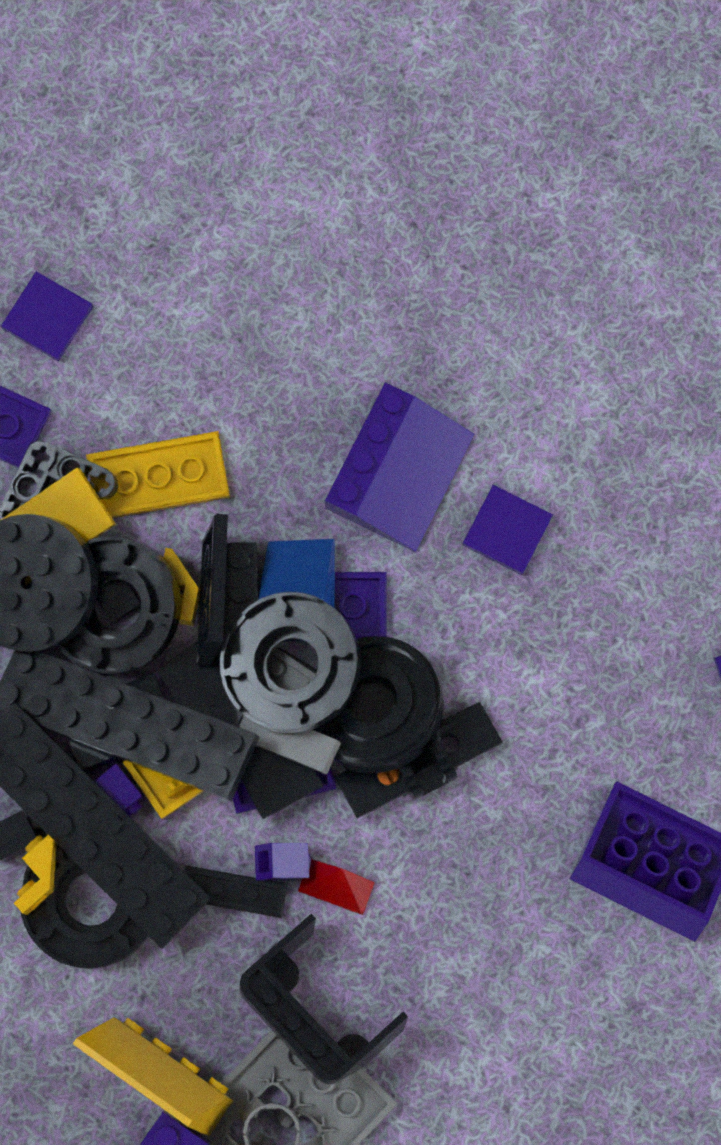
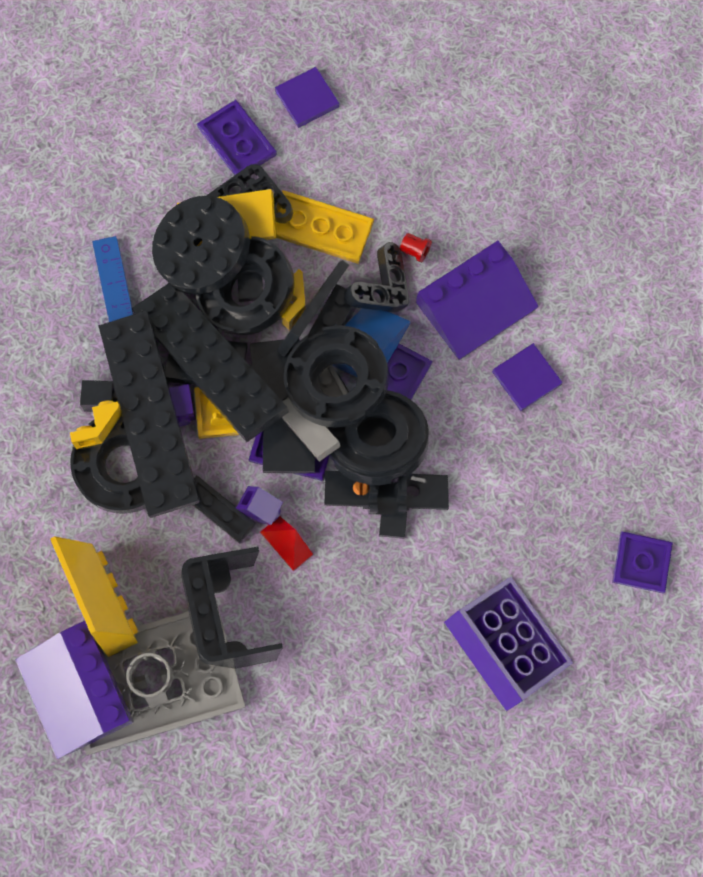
camera: 25 degrees right, 5 degrees down
(286, 509) = (389, 260): none -> black beam
(288, 439) = (416, 246): none -> red bush
(449, 798) = (393, 526): none -> black tile

